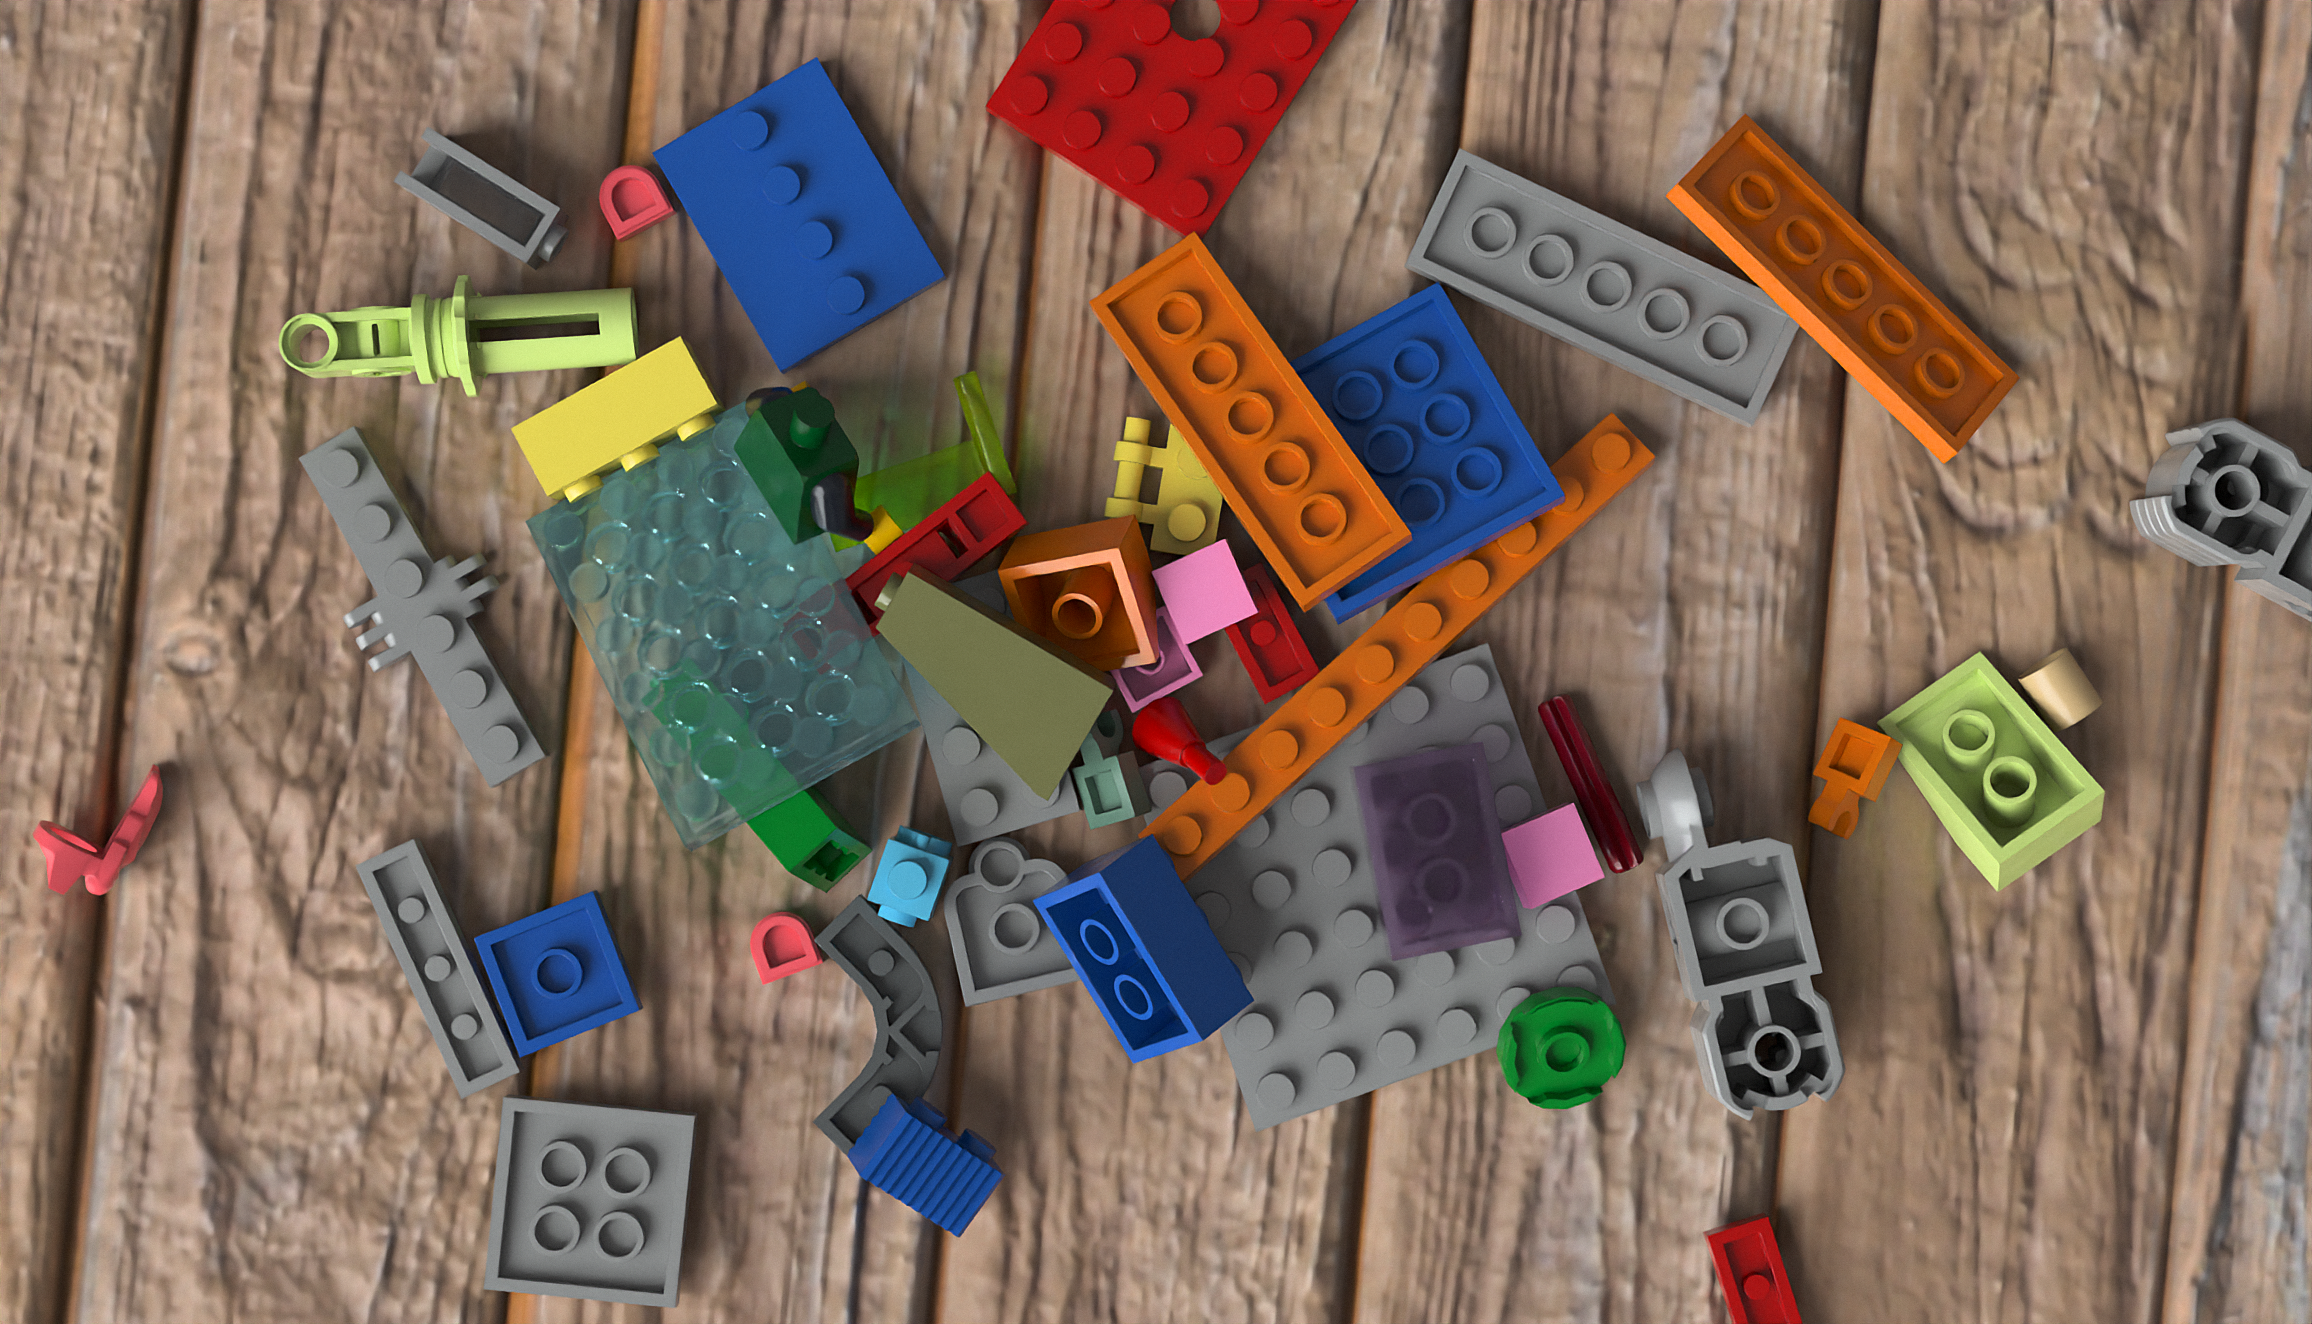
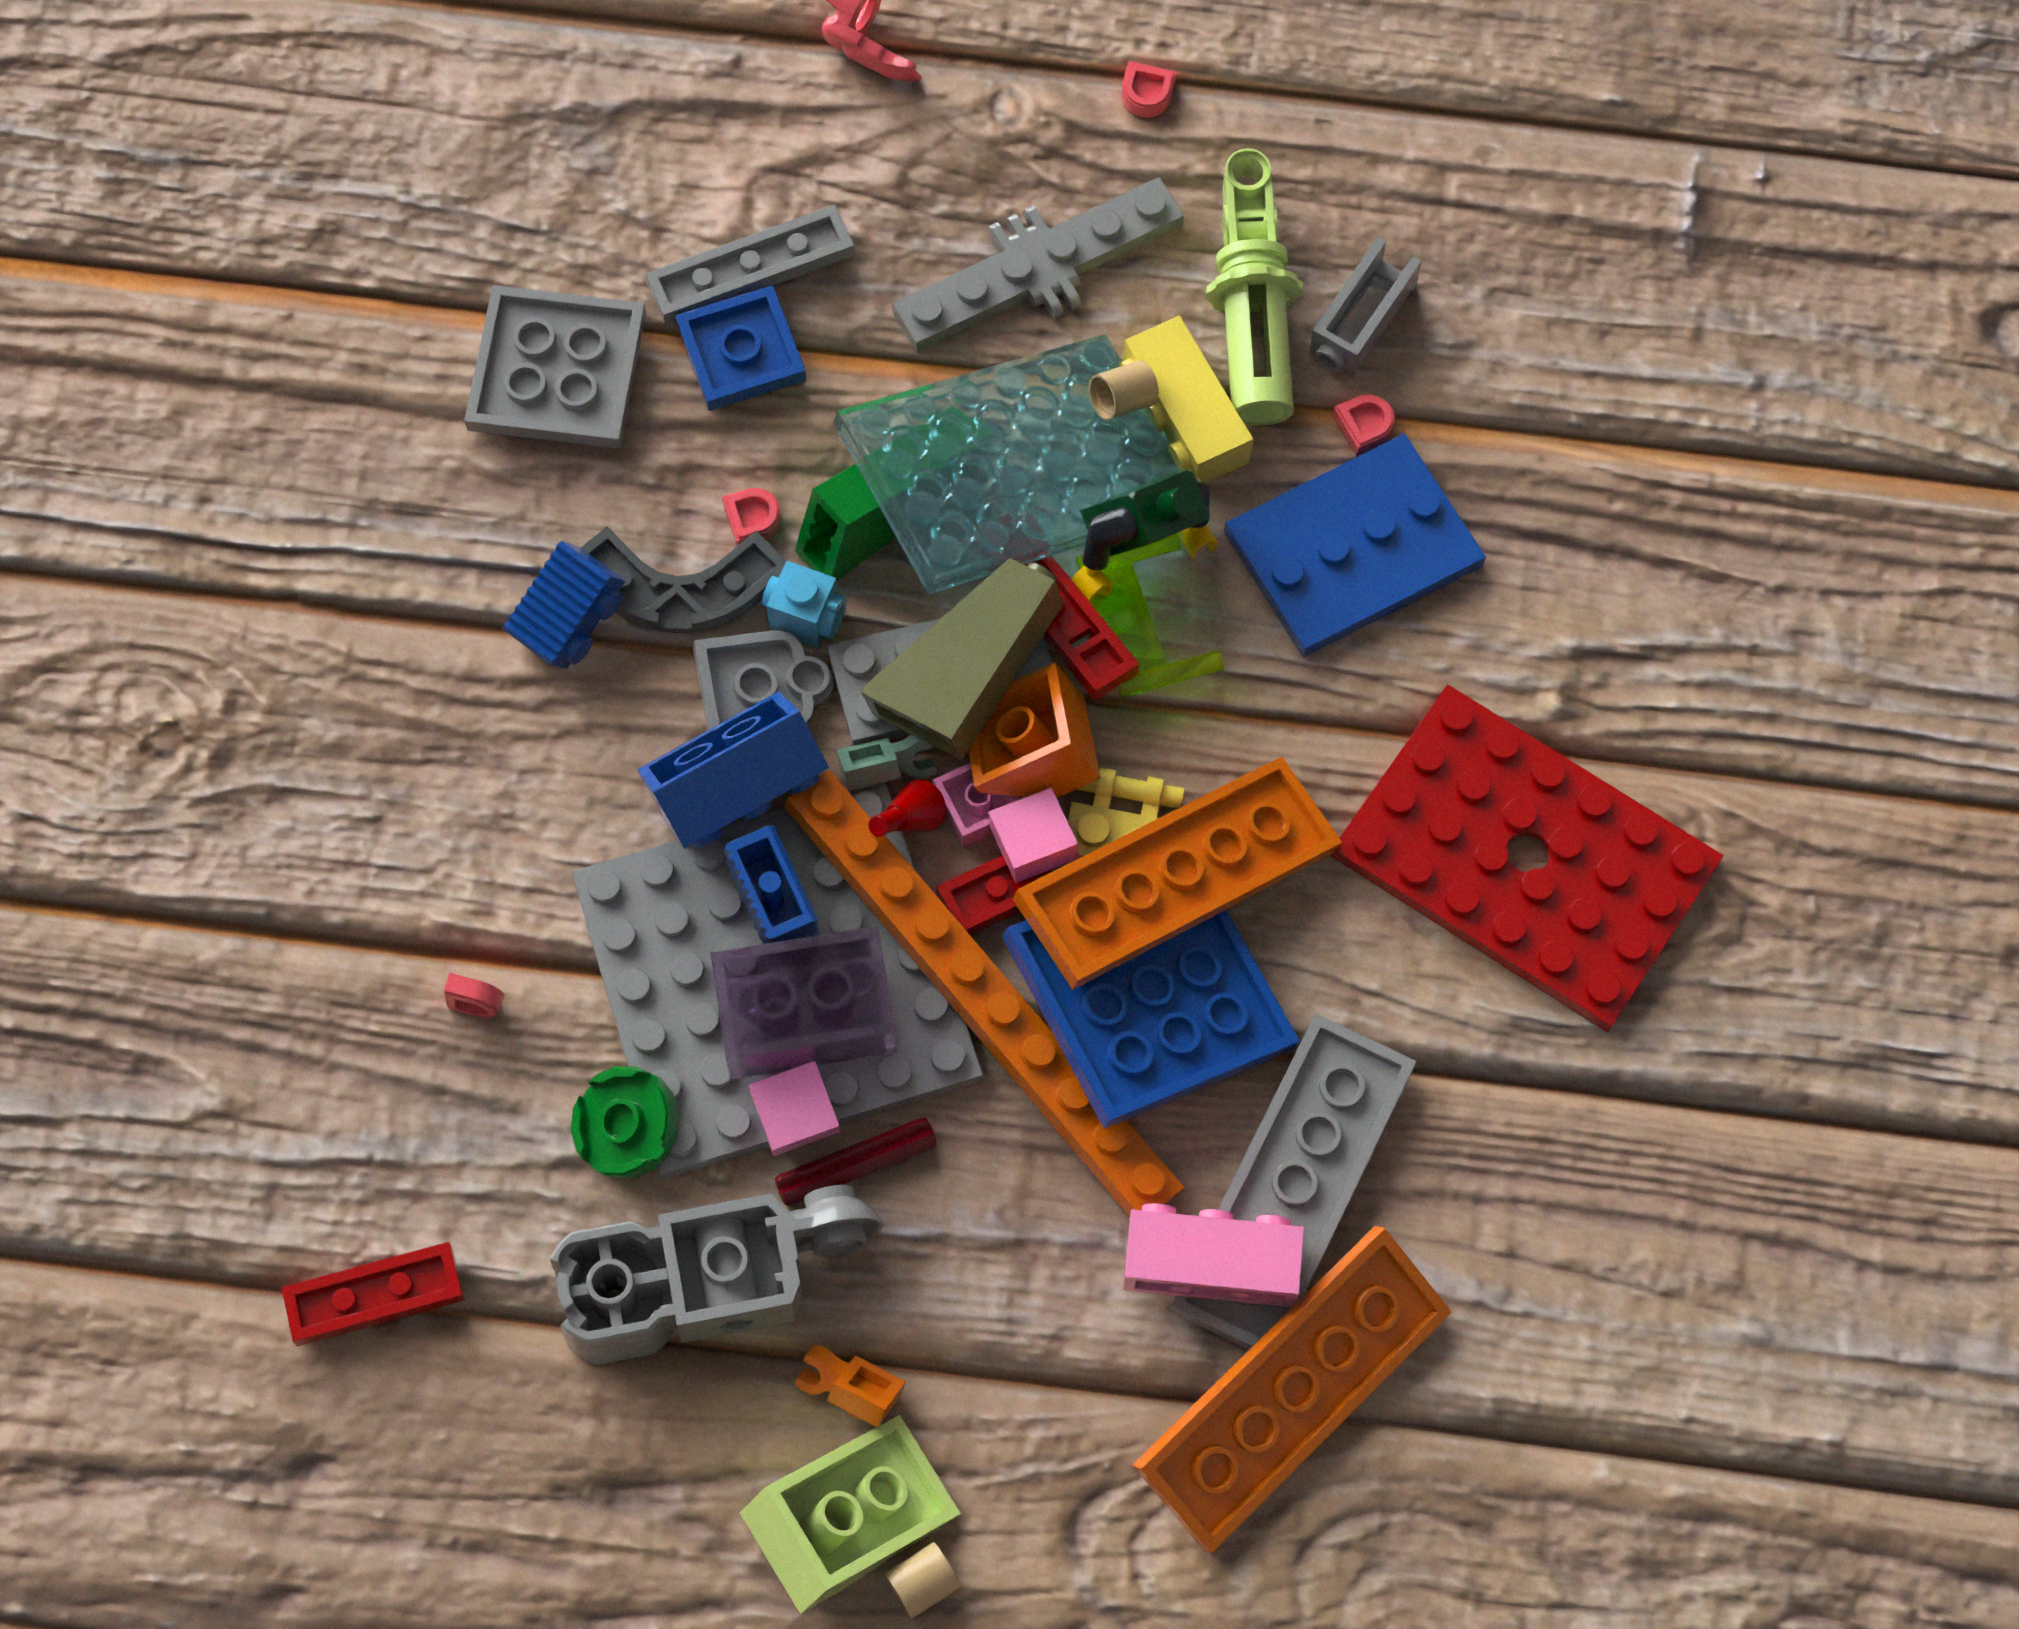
camera: 95 degrees right, 20 degrees down
(166, 475) = (1147, 89): none -> coral tile
(622, 495) = (1123, 390): none -> tan beam
(1301, 893) = (770, 887): none -> blue brick
(1415, 1233) = (472, 996): none -> coral tile
(1709, 376) = (1213, 1256): none -> bright pink brick

